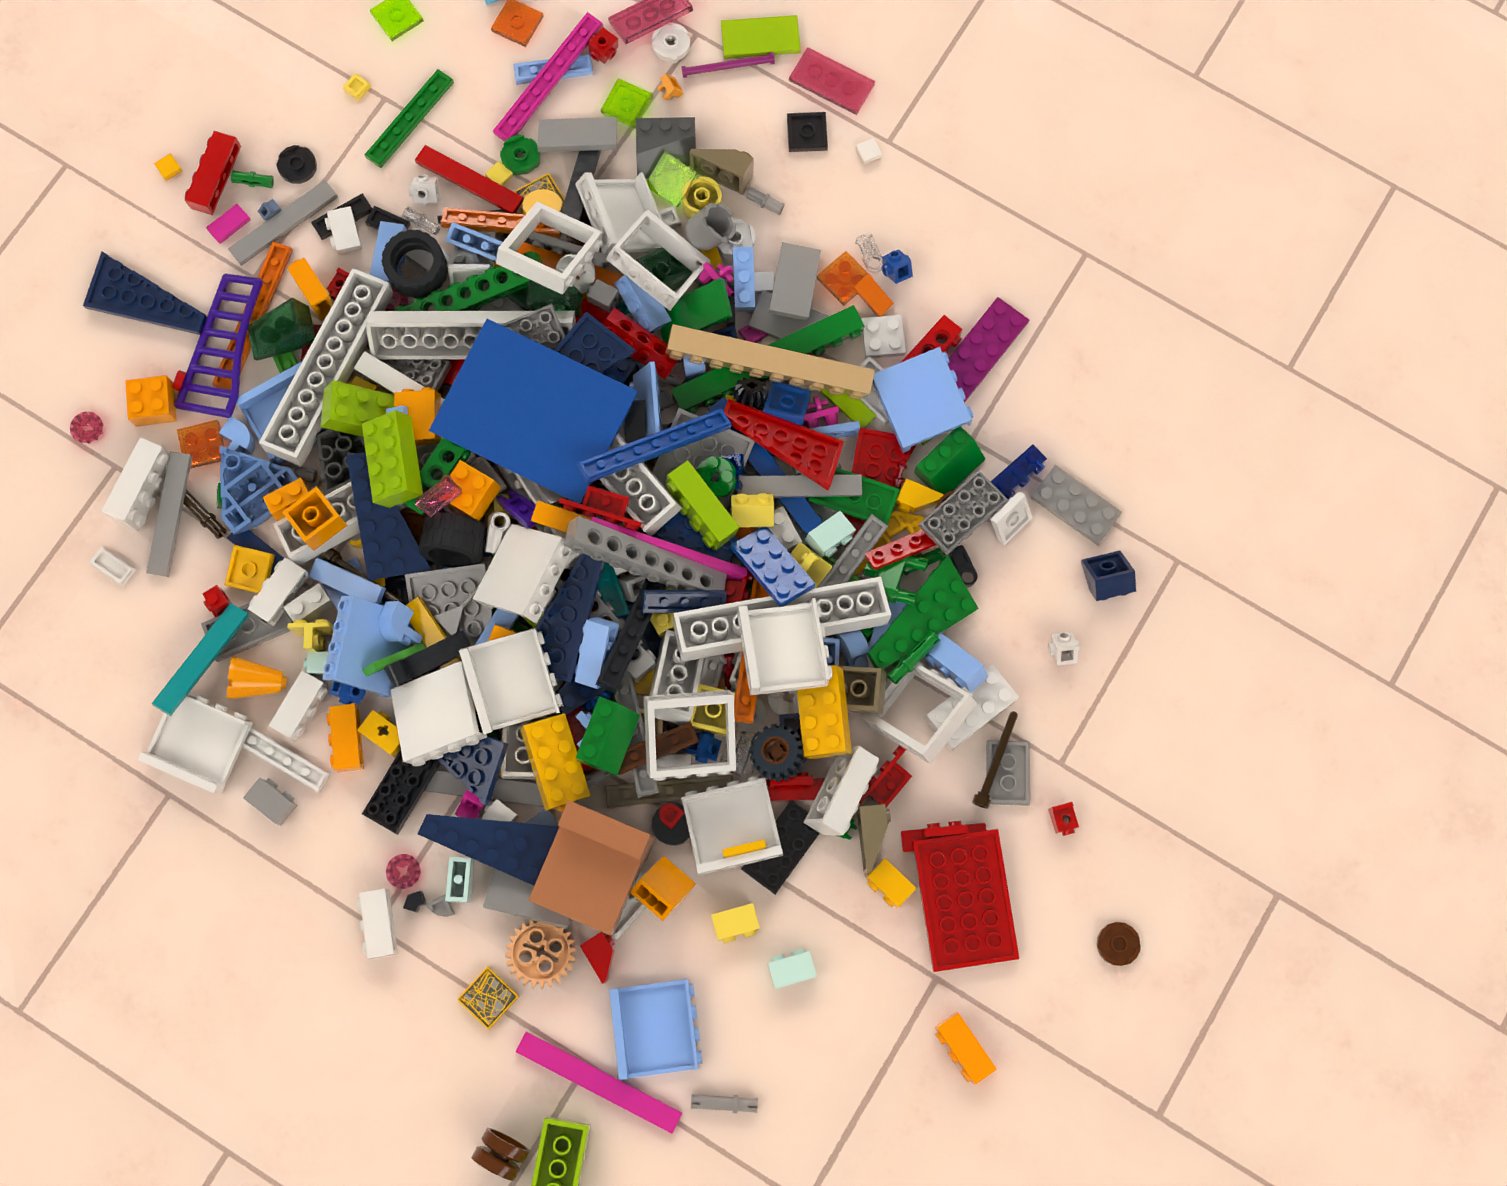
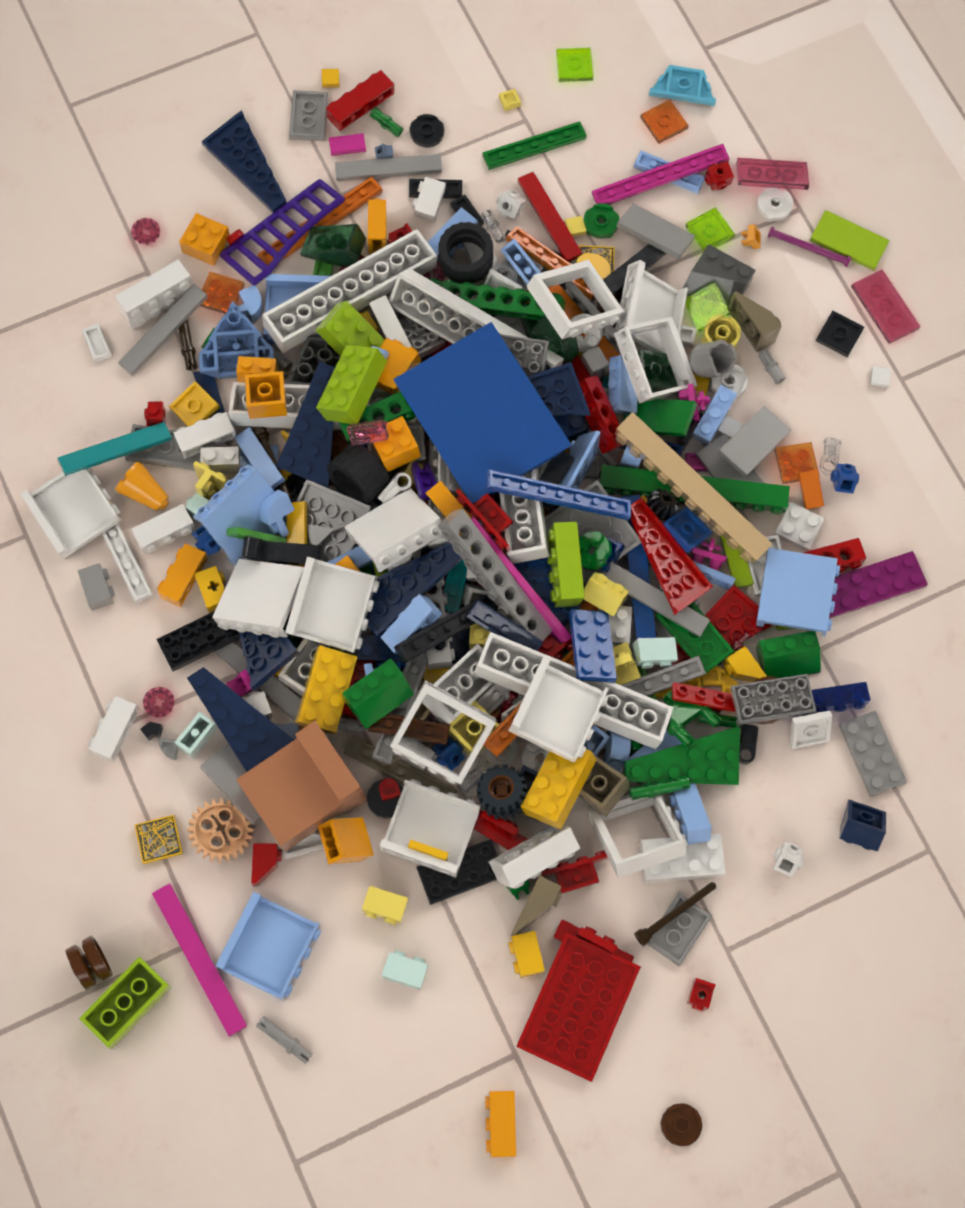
camera: 30 degrees right, 5 degrees down
(171, 217) = (308, 115): none -> light grey tile

